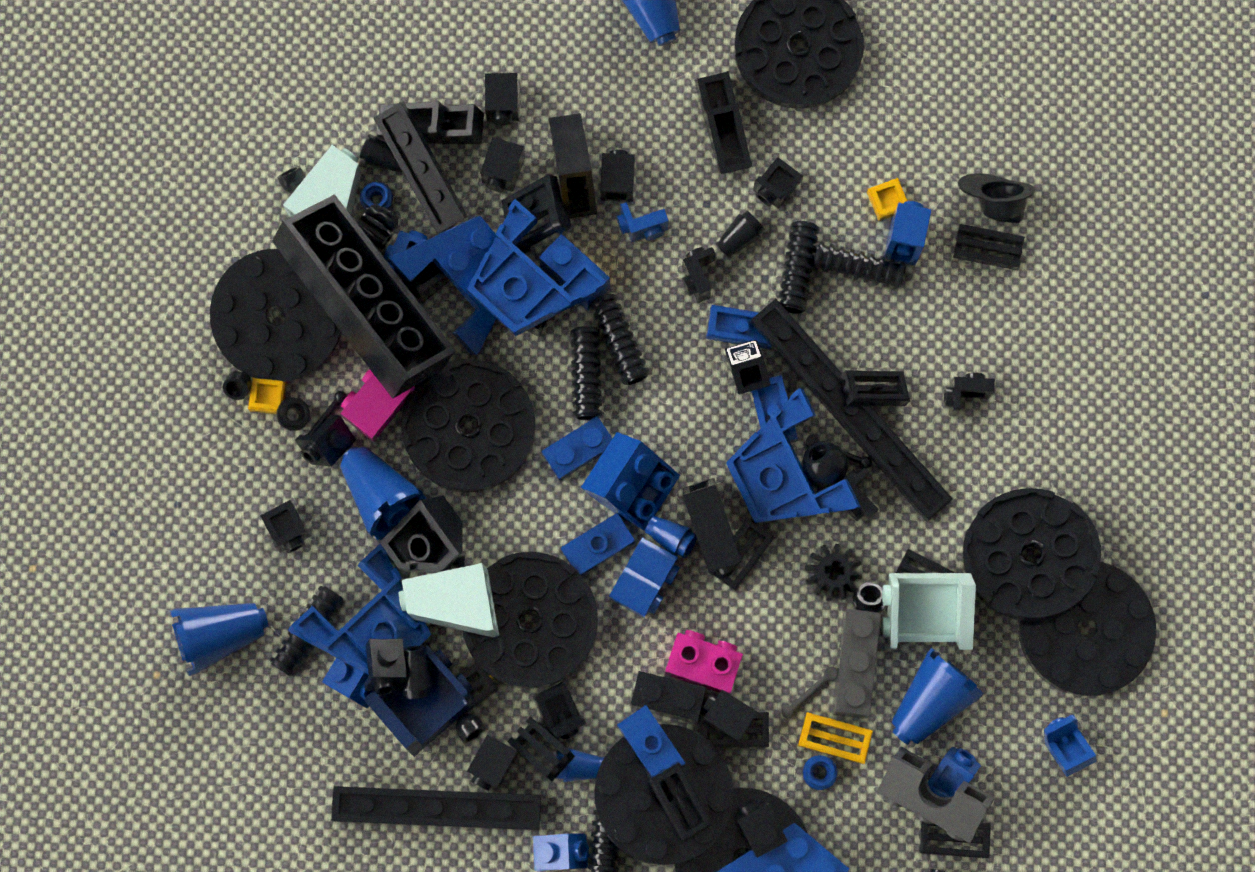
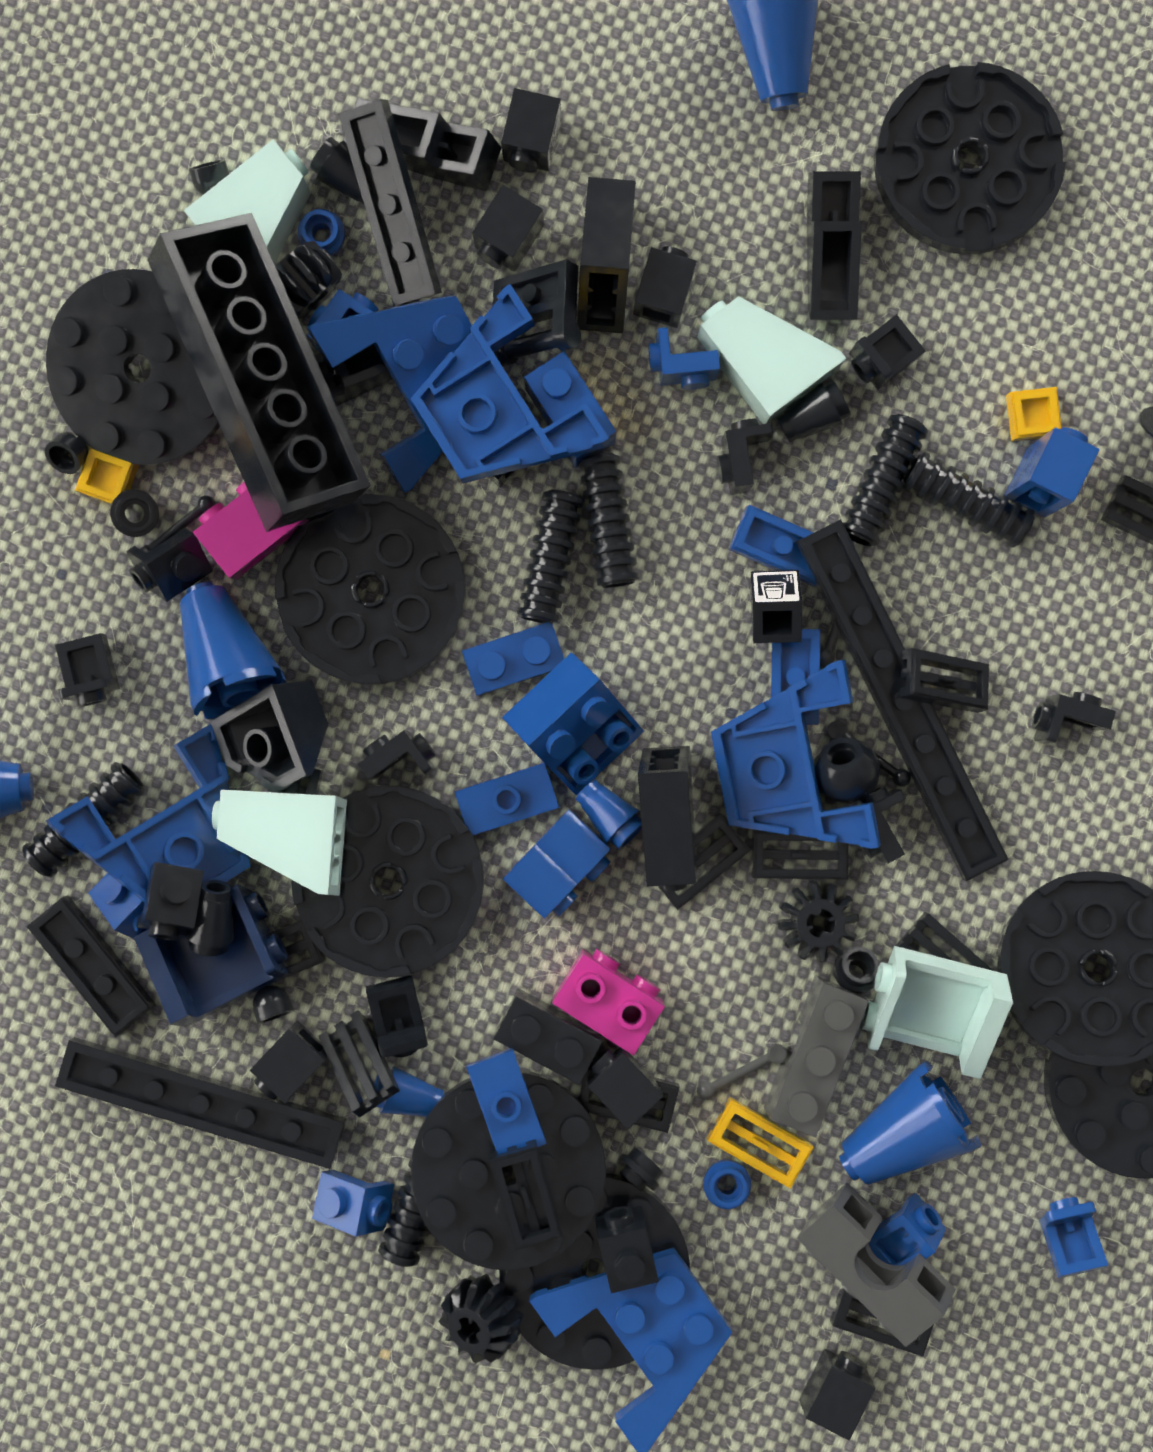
camera: 15 degrees right, 10 degrees up
(335, 733) = (91, 965): none -> black tile
(506, 533) = (385, 753): none -> black bracket
(697, 205) = (766, 356): none -> light aqua slope
(756, 776) = (640, 1170): none -> black plate
(782, 539) = (759, 854): none -> black tile

